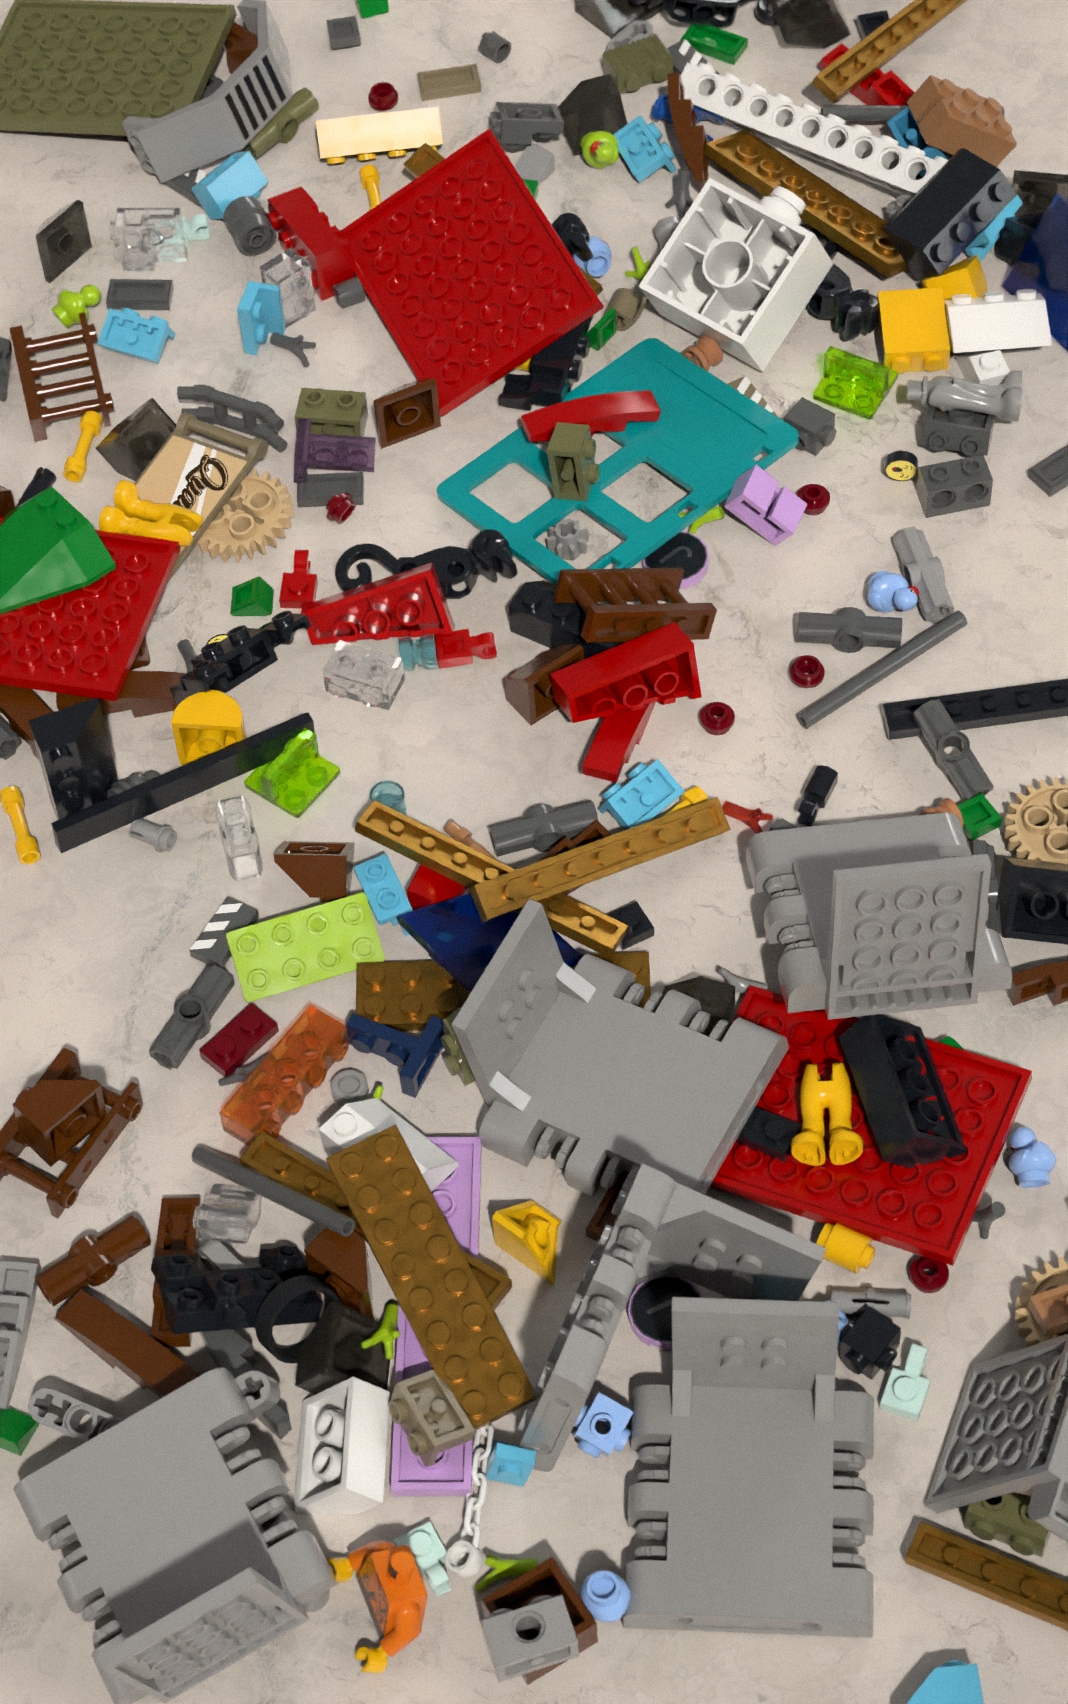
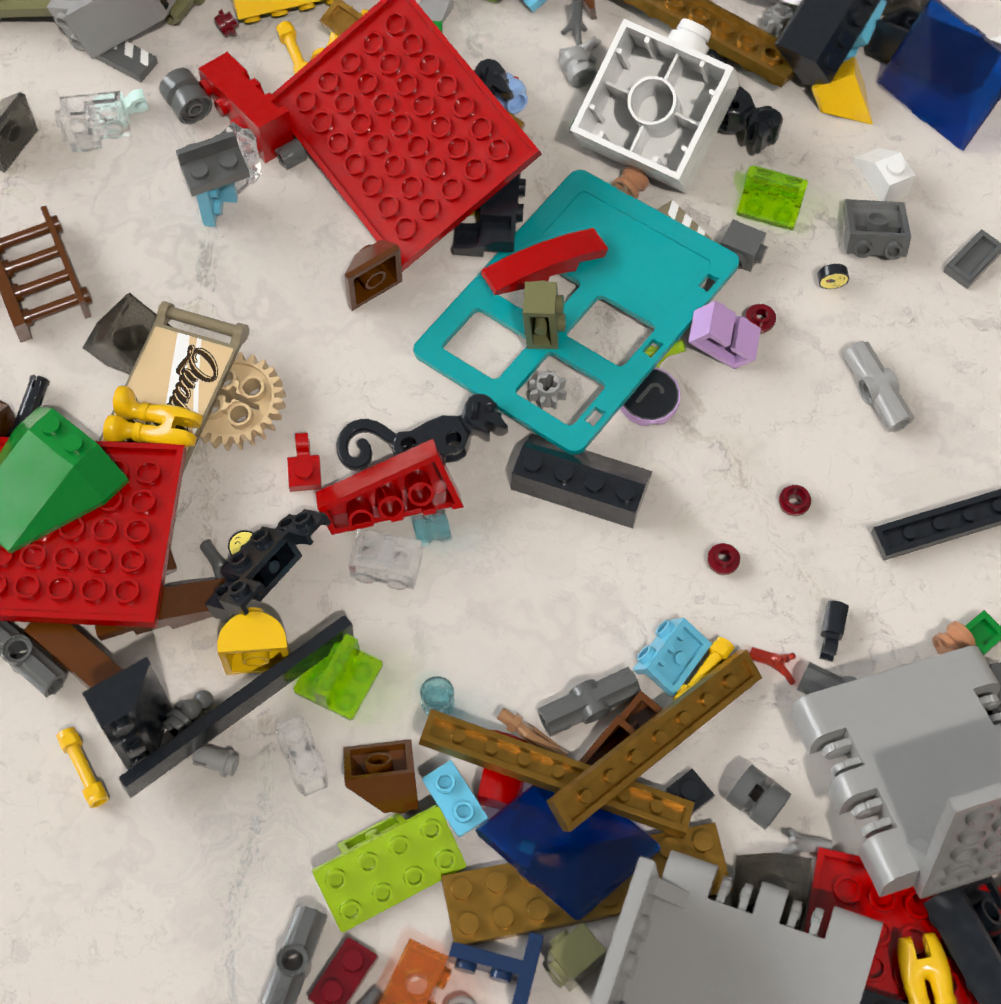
camera: 15 degrees left, 10 degrees up
(72, 303) = (31, 197): lime animal -> none
(76, 465) = (66, 366): yellow bar -> none
(135, 336) = (97, 222): medium azure bracket -> none
(139, 294) = (93, 176): dark grey tile -> none
(212, 944) = (306, 853): dark grey tile -> none
(230, 180) = (158, 55): medium azure brick -> none
(249, 409) = (242, 306): dark grey piece -> none
(252, 598) = (261, 487): green slope -> none
(259, 281) = (212, 163): none -> dark grey bracket
(292, 344) = (248, 213): dark grey bar -> none
(308, 161) = (226, 23): none -> dark red plate
(323, 487) = (313, 361): dark grey tile -> none
(330, 452) = (307, 325): clear purple bracket -> none
(333, 411) = (300, 284): olive brick -> none
(340, 507) = (327, 381): dark red plate -> none
(459, 648) = (472, 517): red plate -> none
(530, 687) = (560, 544): reddish brown slope -> none
(603, 330) = (533, 170): green slope -> none
(616, 742) = (640, 587): red slope -> none
(628, 307) = (552, 143): dark tan panel -> none
(628, 621) = (631, 482): reddish brown fence -> none
(629, 675) = (641, 535): red wedge -> none
(642, 268) = (557, 105): lime bar -> none
(700, 934) = (769, 803): none -> dark grey wheel
(849, 630) = (825, 452): dark grey piece -> none
(881, 669) = (860, 488): dark grey piece -> none
(891, 591) = (855, 407): light blue animal -> none
(914, 330) = (816, 137): yellow panel -> none
(941, 733) = (963, 587): dark grey piece -> none
(954, 486) = (886, 292): dark grey brick -> none
(956, 393) = (869, 201): light grey piece -> none
(997, 321) = (888, 124): white slope -> none

